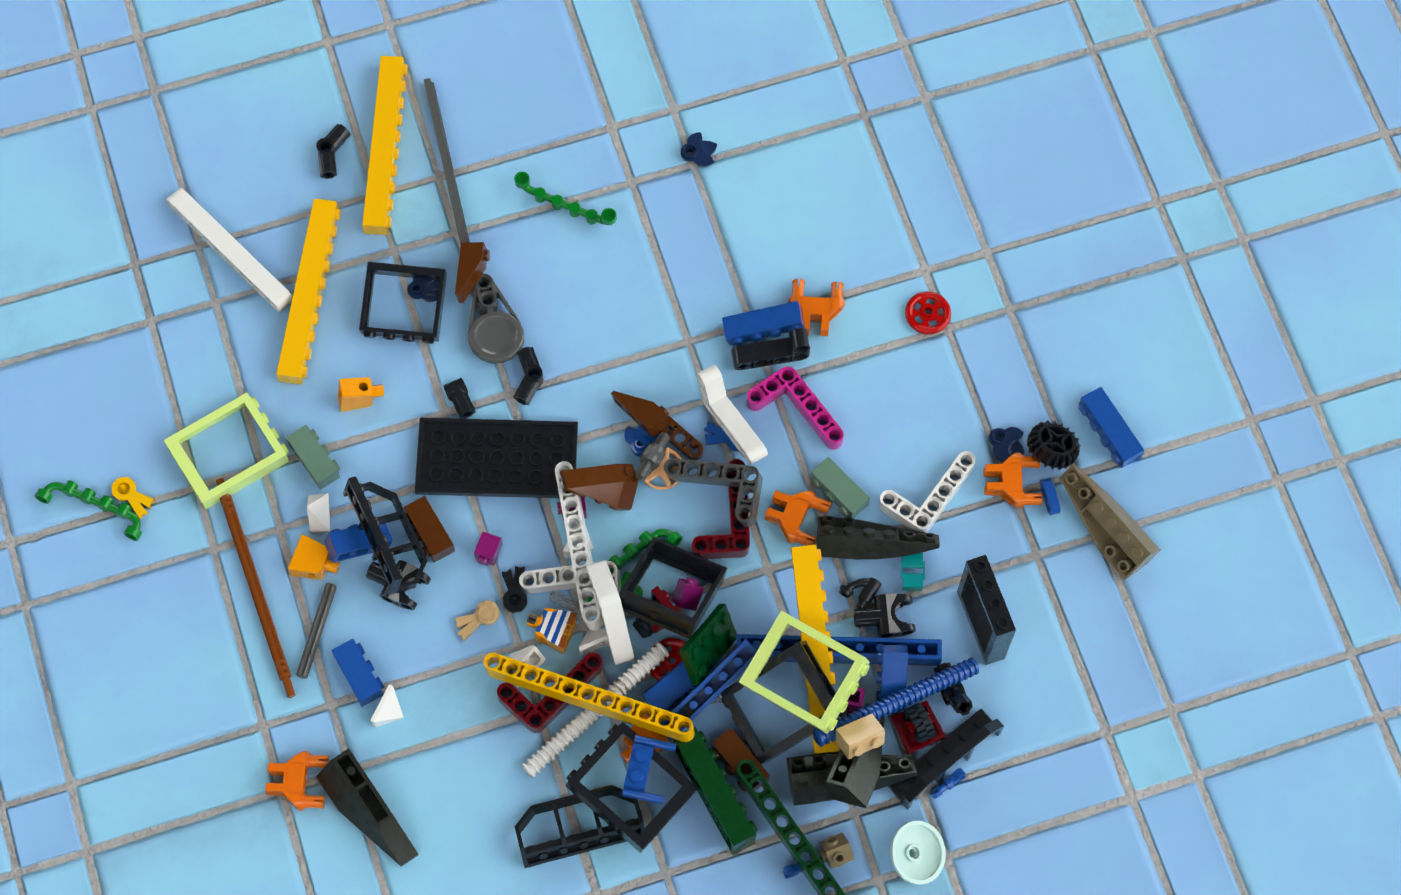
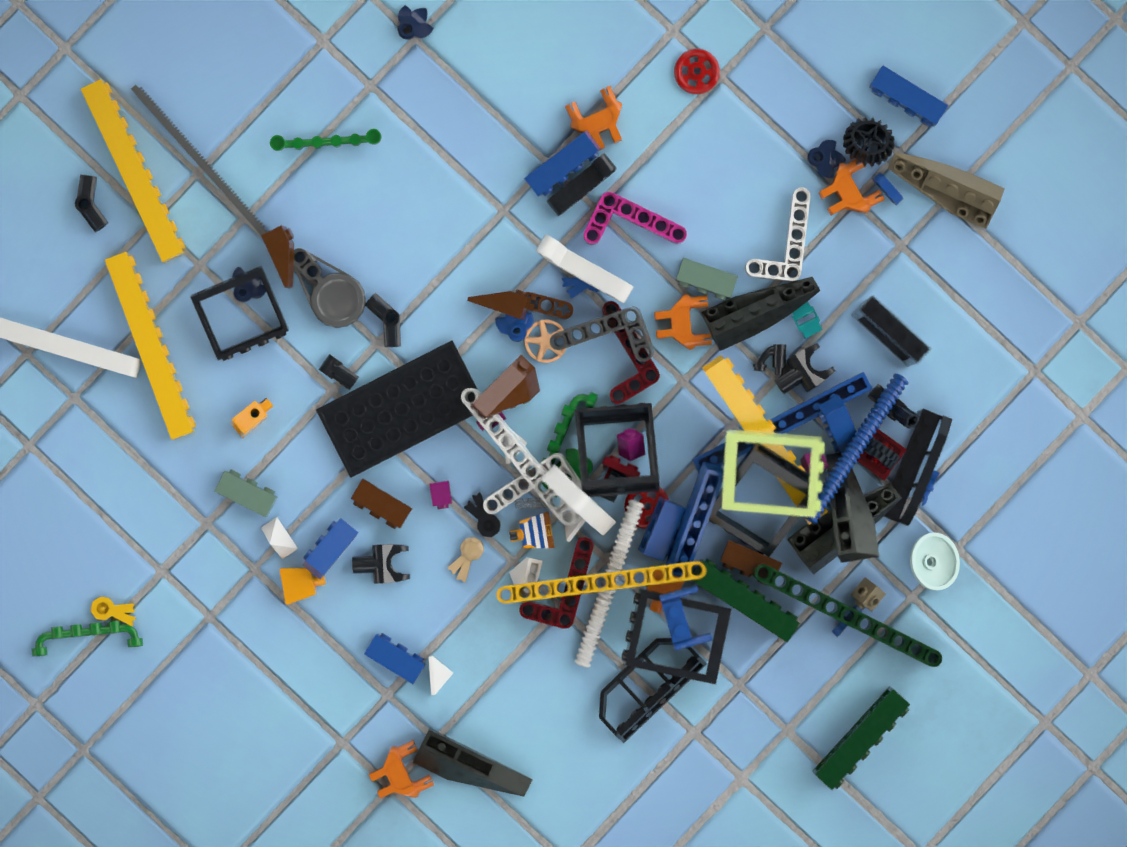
camera: 30 degrees left, 20 degrees up
(241, 480) = (150, 564): yellowish green window -> none
(256, 591) = (265, 631): dark orange axle -> none
(316, 630) = (338, 639): dark grey axle -> none
(377, 540) = (349, 545): black plate -> none
(652, 456) = (534, 338): dark grey axle -> none
(708, 644) = (674, 482): dark green plate -> none
(860, 736) = (844, 499): tan brick -> none

